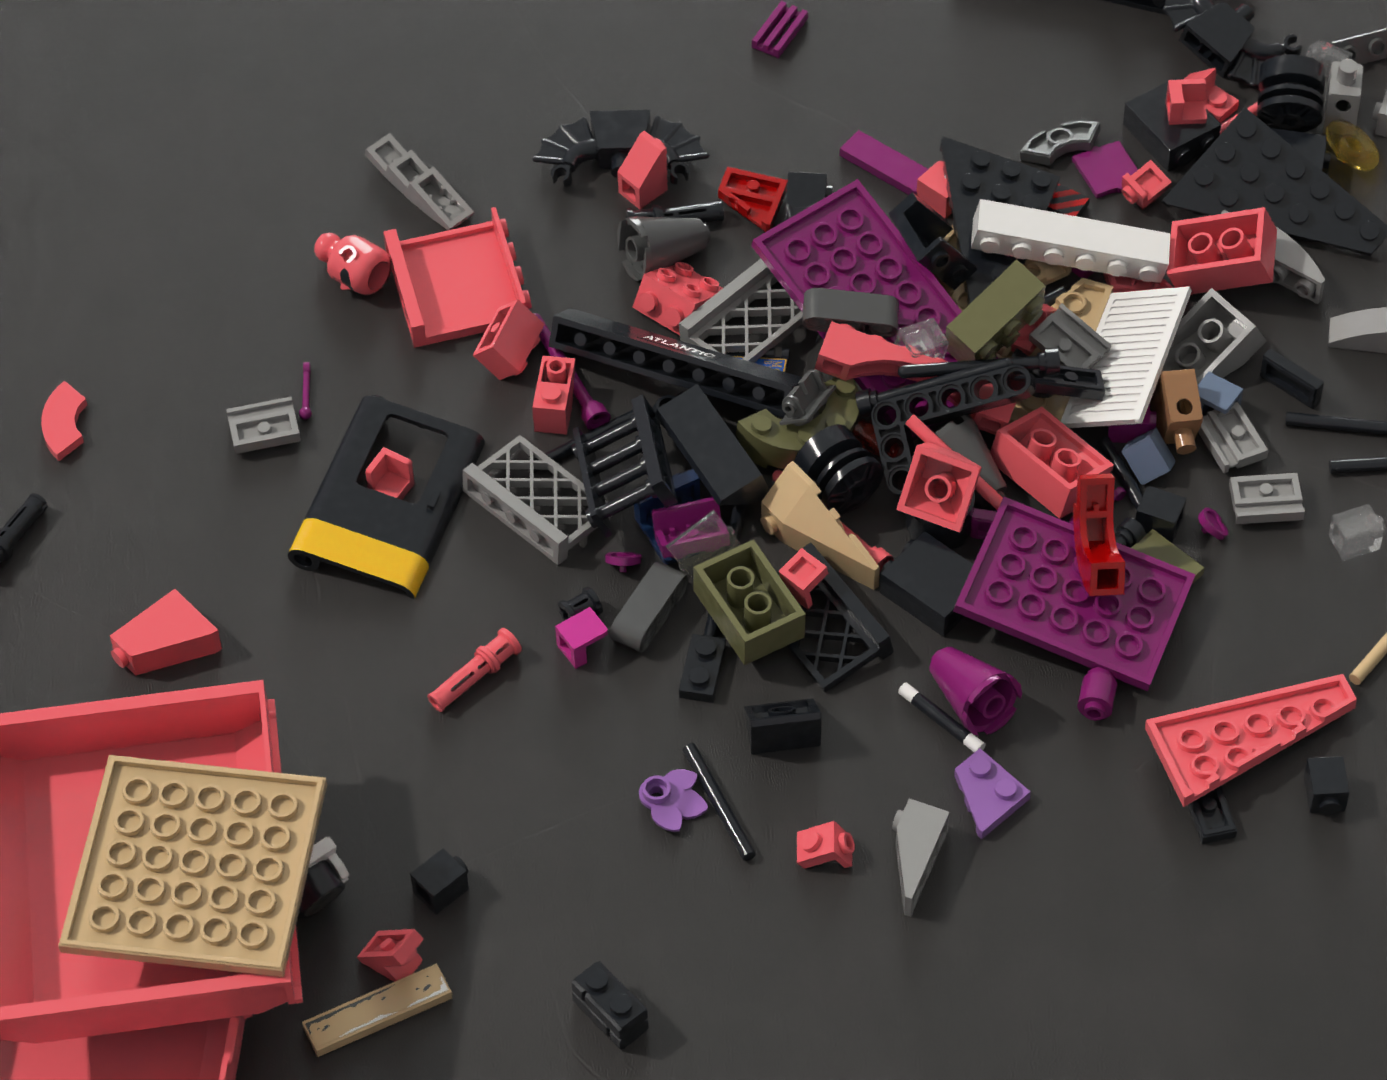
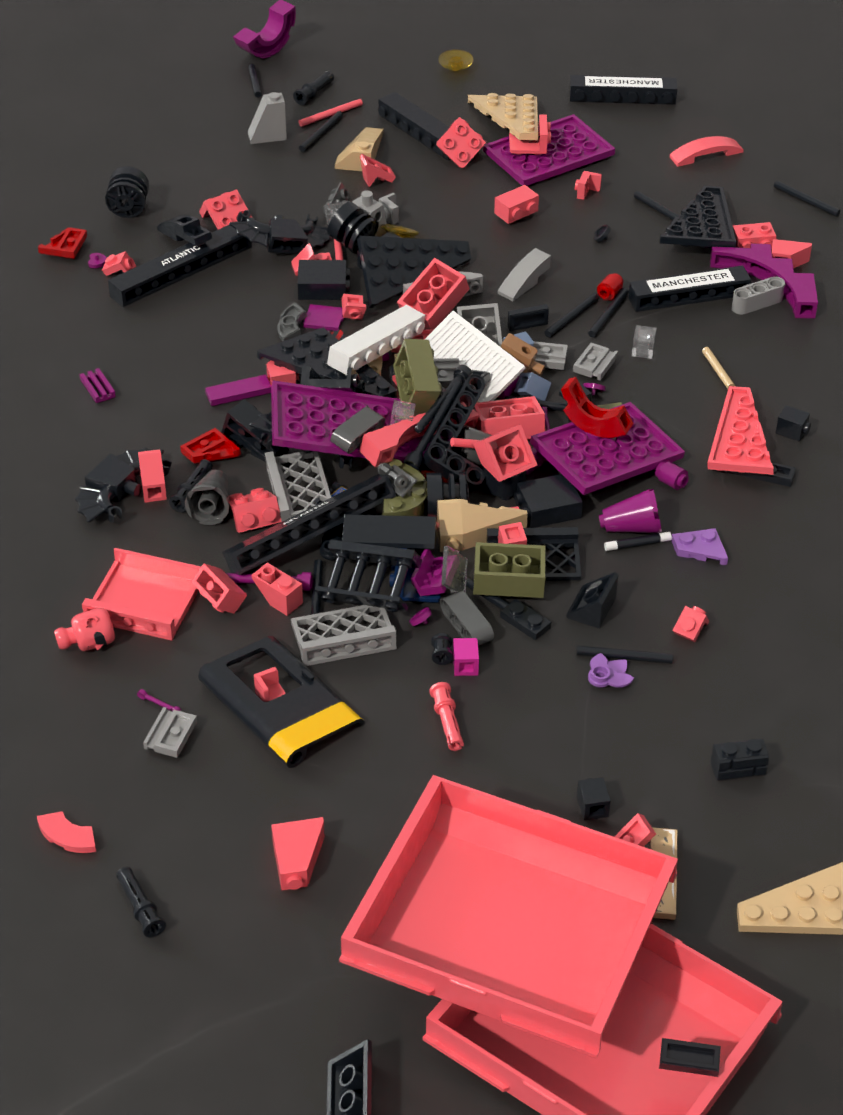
camera: 60 degrees left, 10 degrees down
(194, 866) = (556, 869): tan tile -> none
(418, 183) = (58, 578): light grey slope -> none
(918, 841) = (723, 587): light grey slope -> none
(1186, 101) = (322, 262): coral panel -> none

